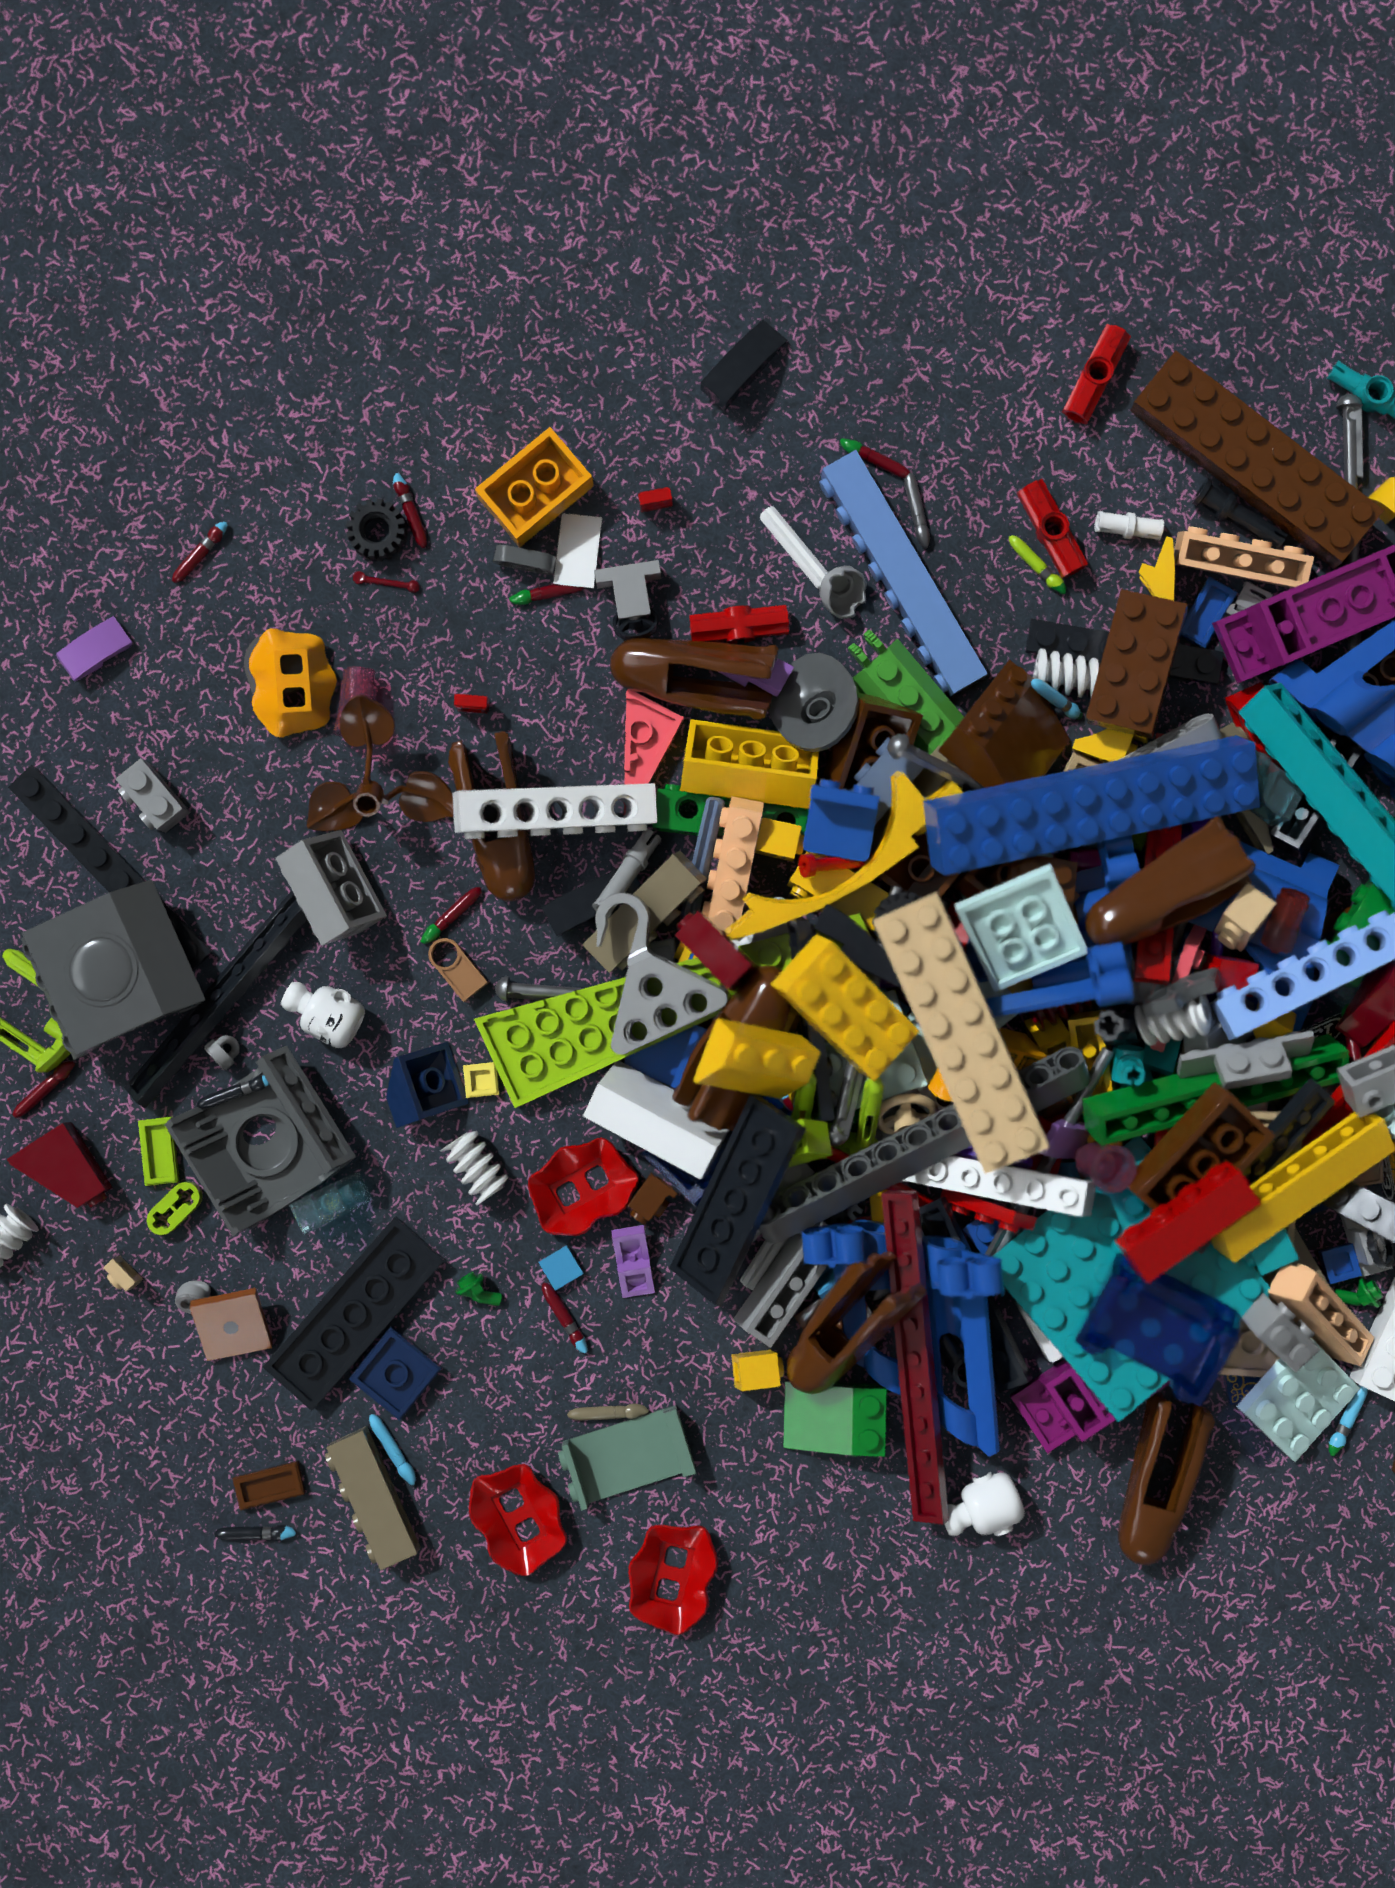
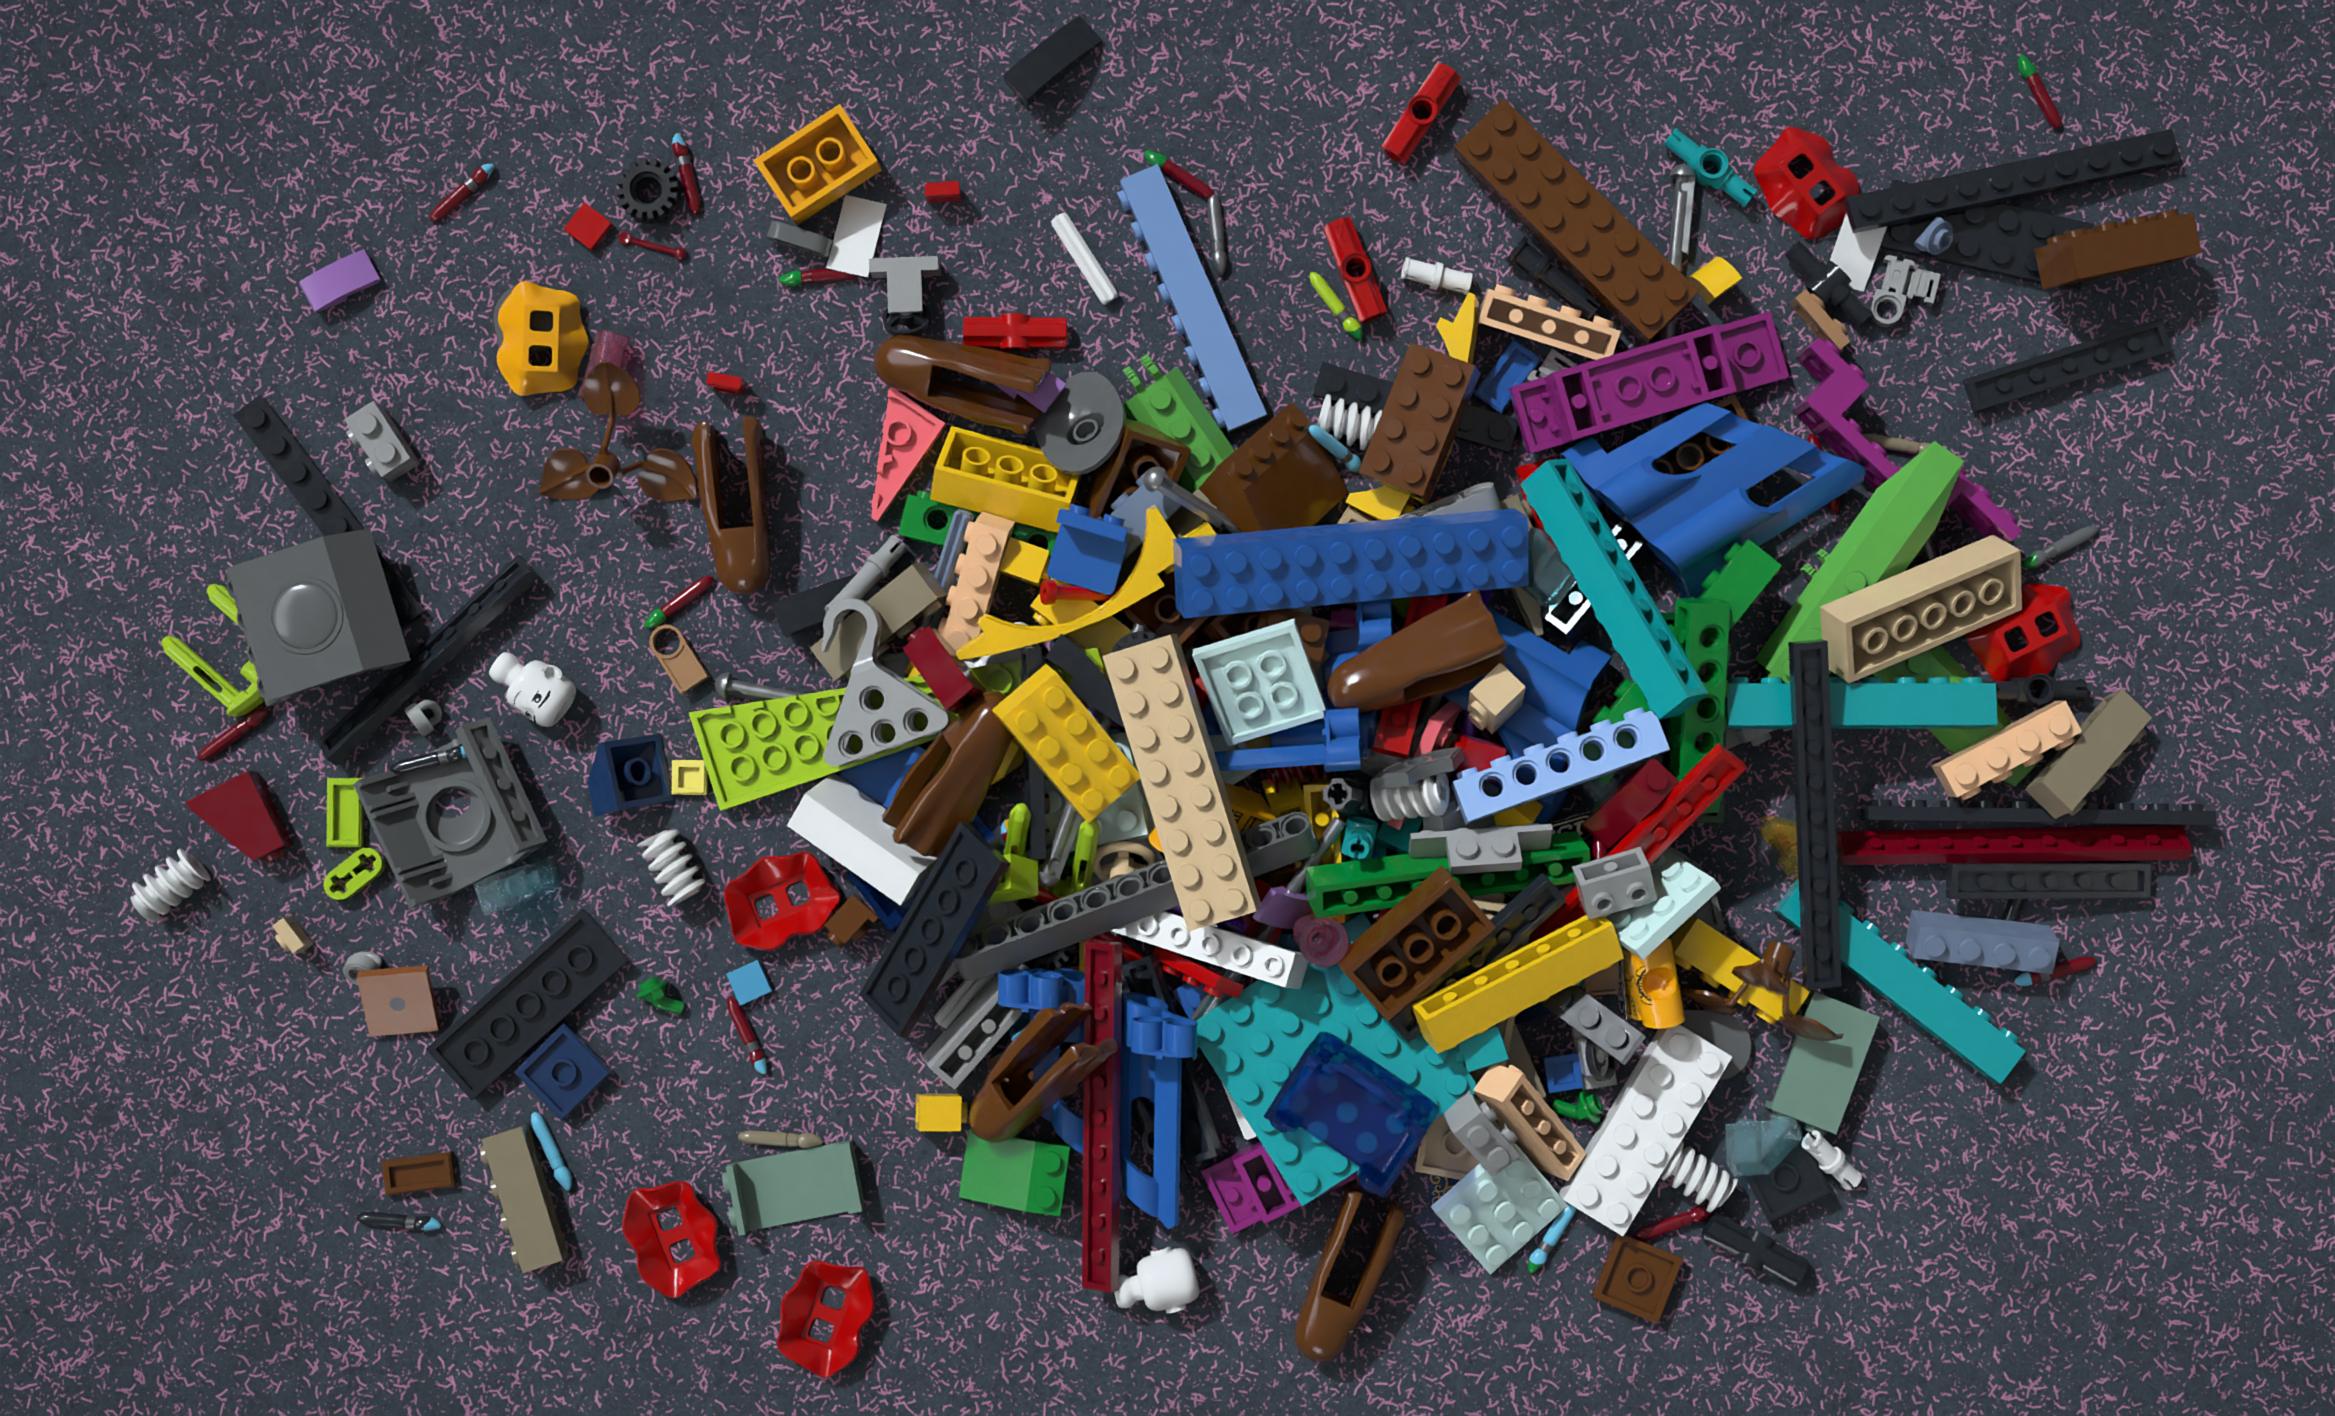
camera: 10 degrees right, 0 degrees up
(323, 570) = (588, 226): none -> red tile
(330, 887) = (555, 558): light grey brick -> none
(633, 1261) = (825, 984): medium lavender slope -> none
(638, 798) = (885, 501): white brick -> none
(756, 1060) = (967, 786): yellow slope -> none
(843, 591) = (1127, 310): light grey hair -> none
(1187, 1221) = (1391, 1004): red brick -> none
(1284, 924) = (1539, 707): clear red piece -> none

